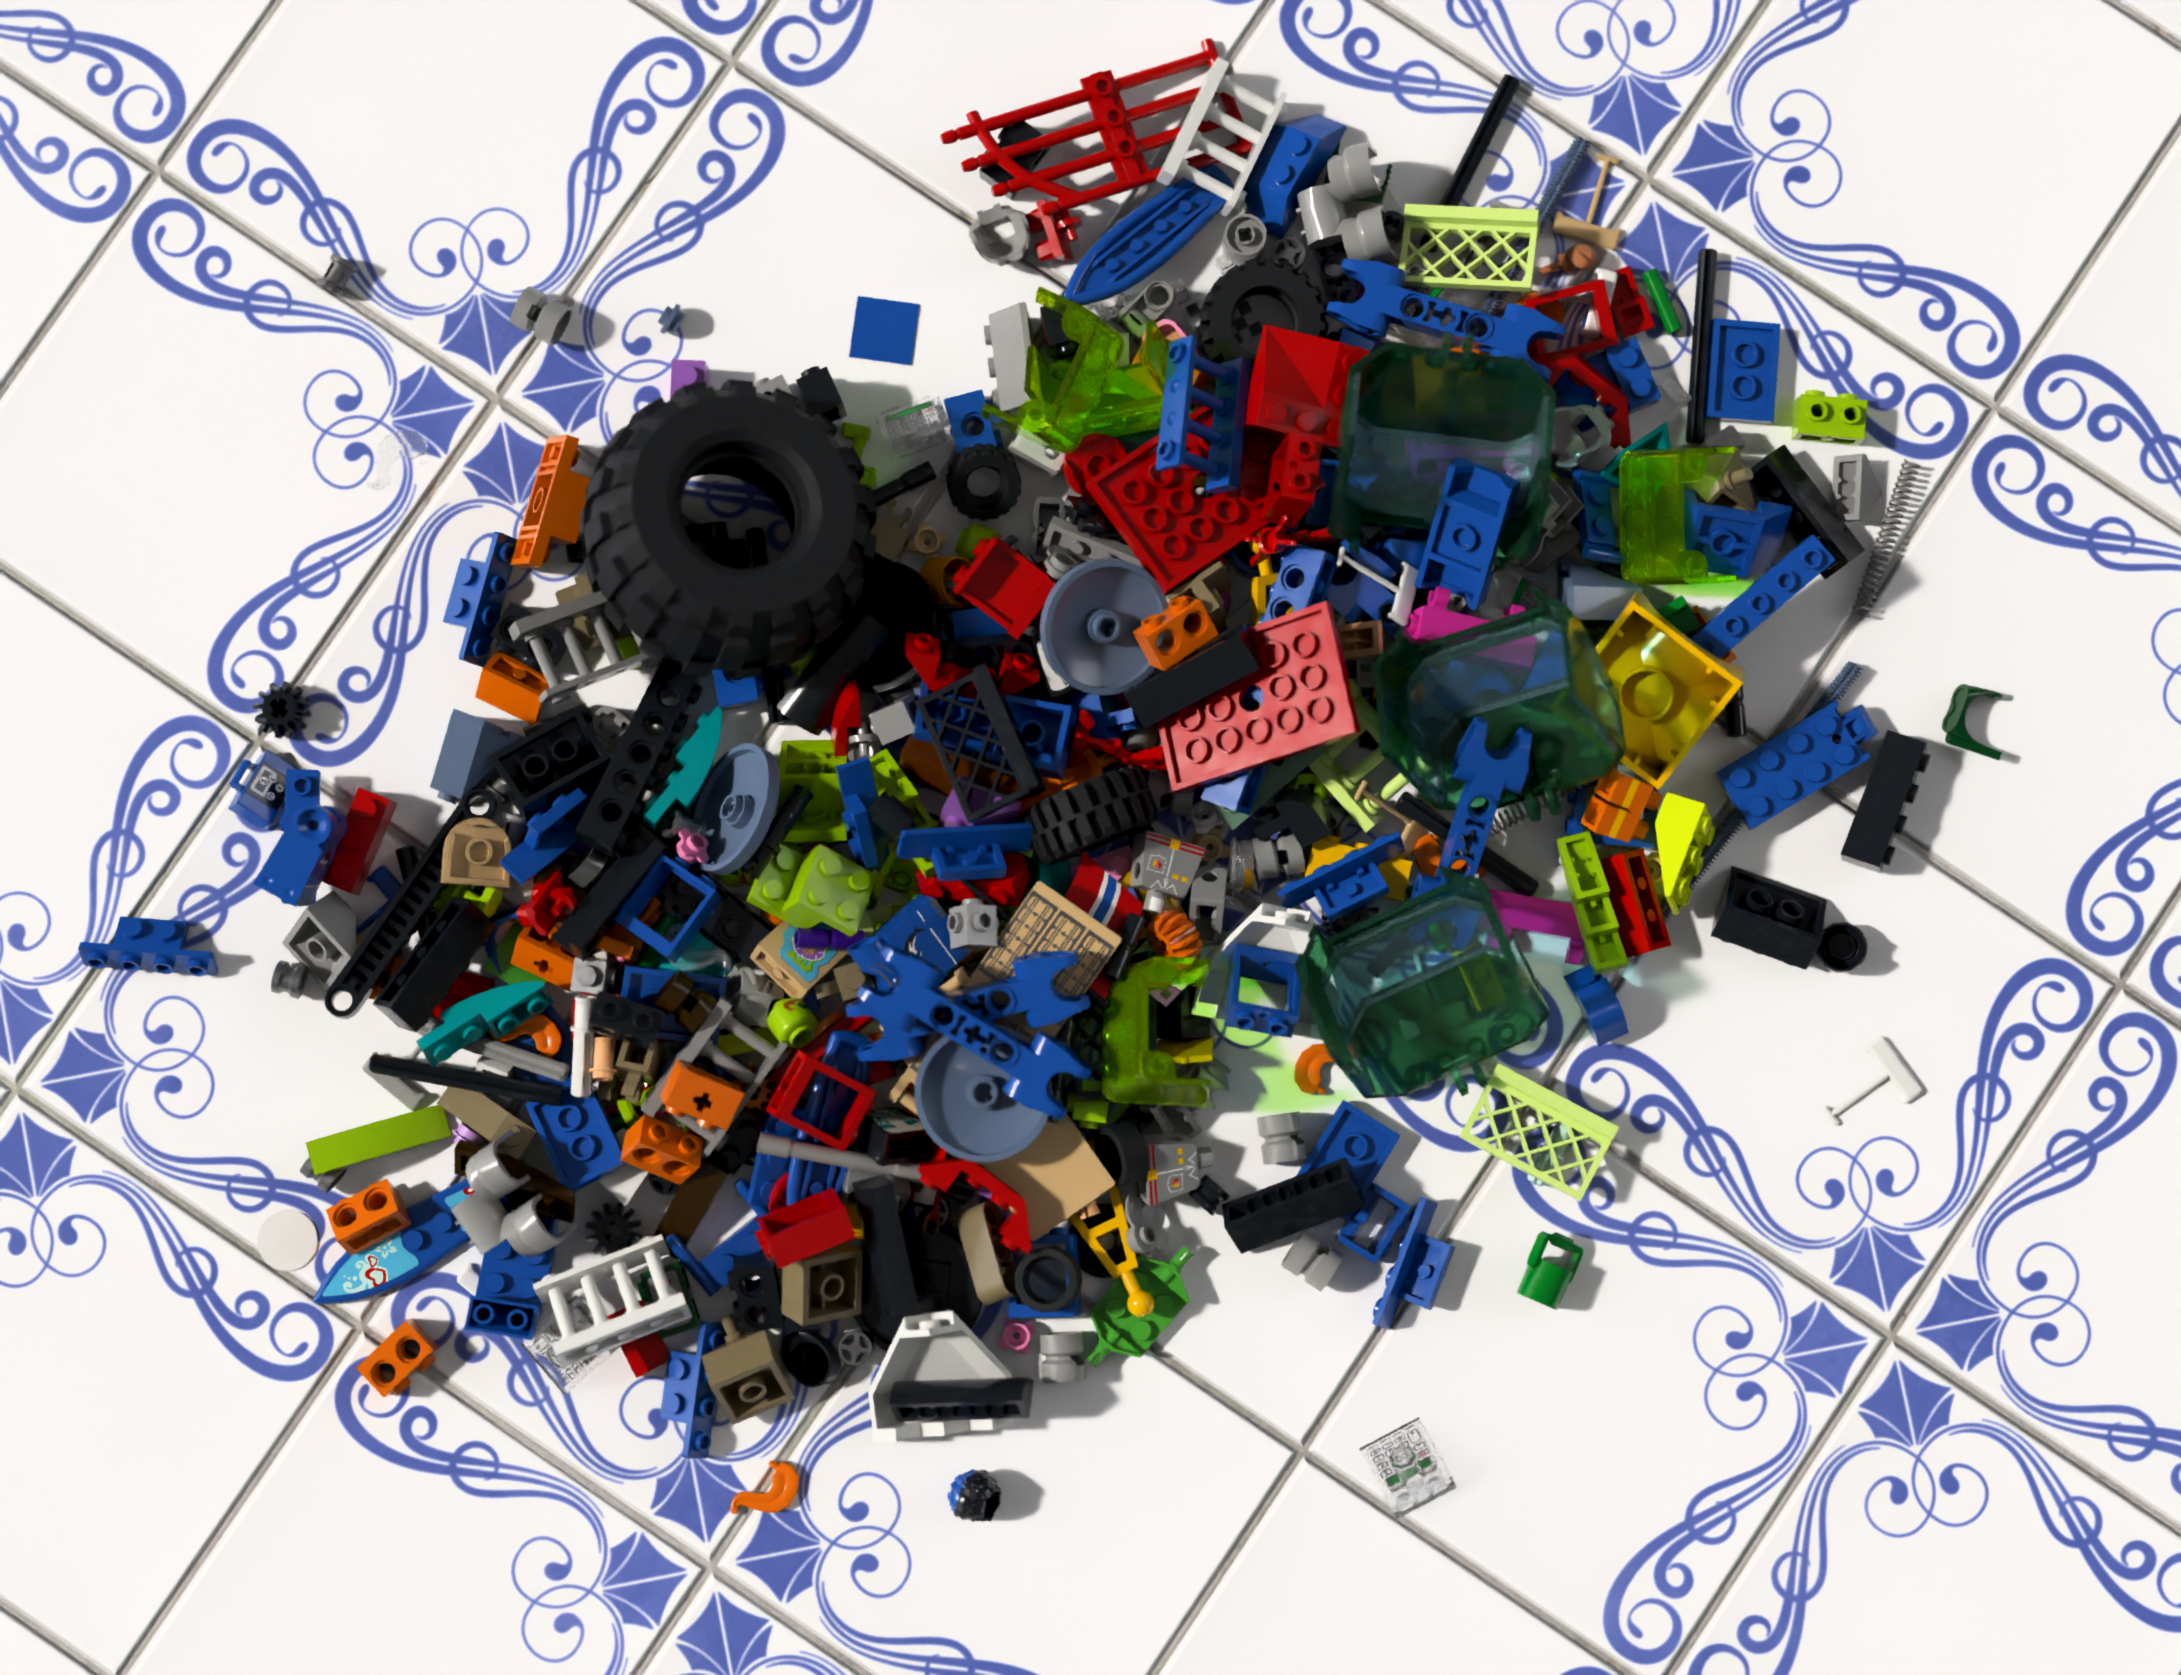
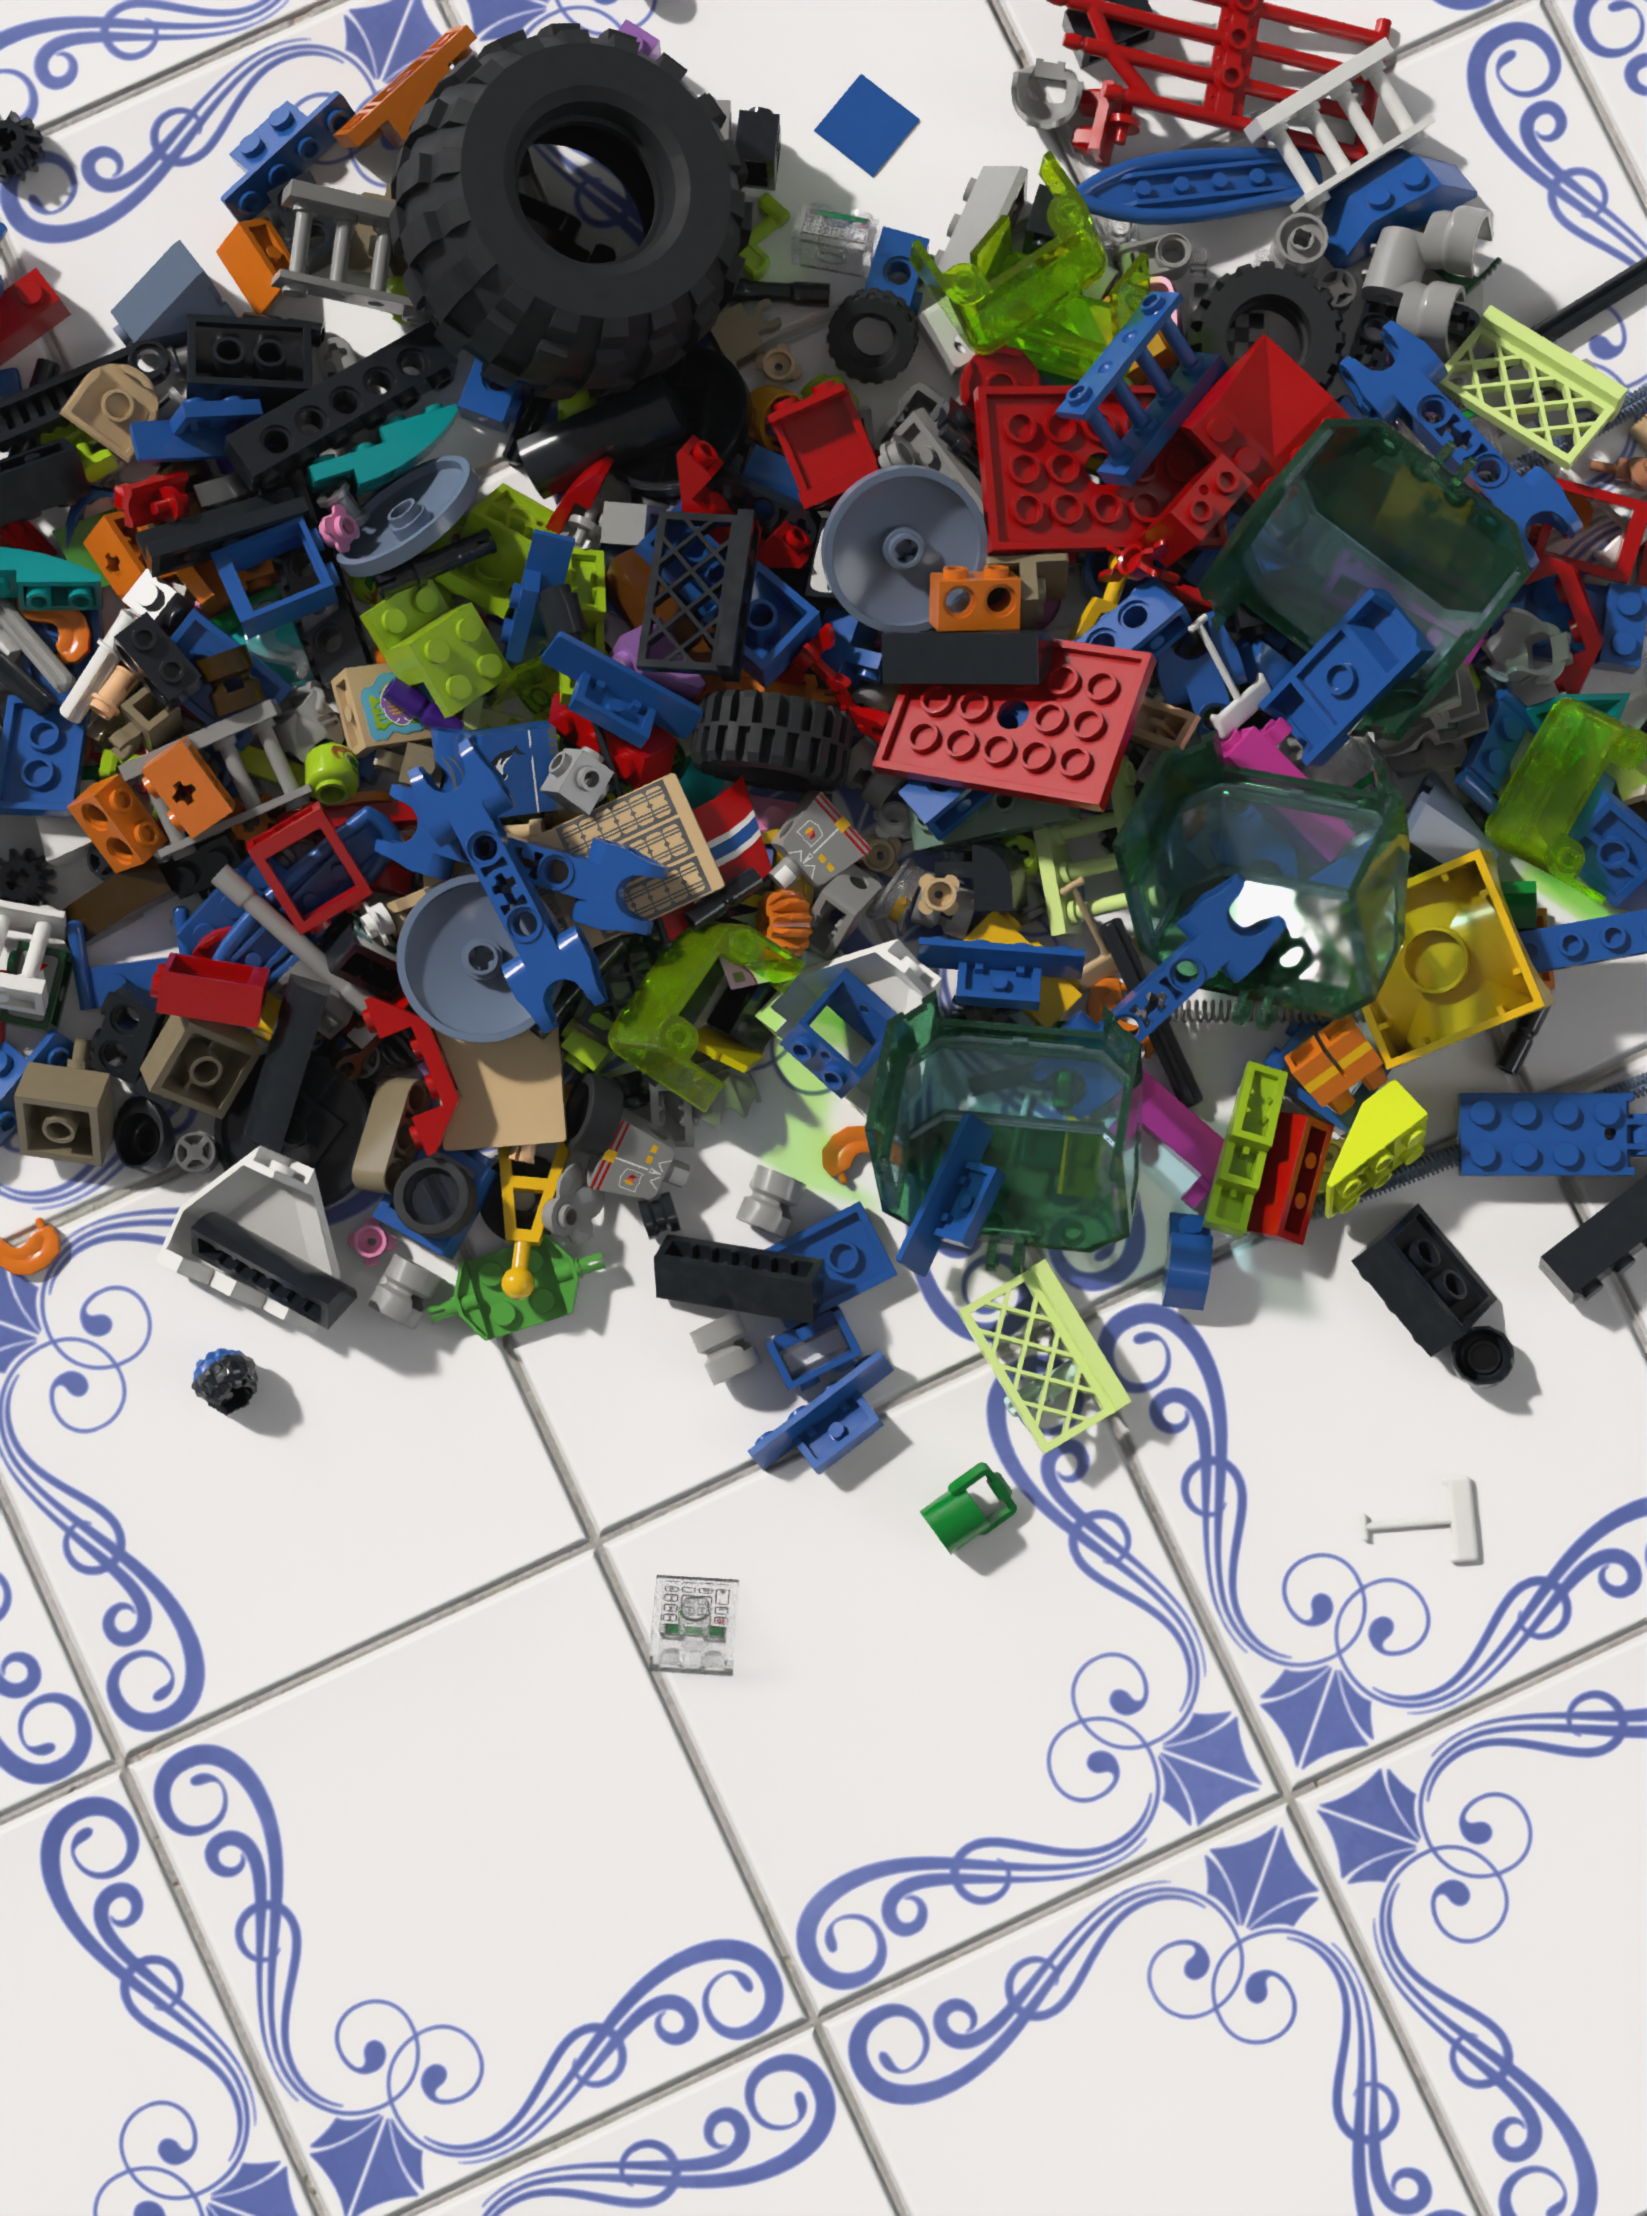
camera: 30 degrees right, 0 degrees up
(891, 1109) = (377, 922): none -> white plate
(1280, 855) = (928, 900): none -> tan plate
(1412, 1059) = (955, 1199): none -> blue bracket

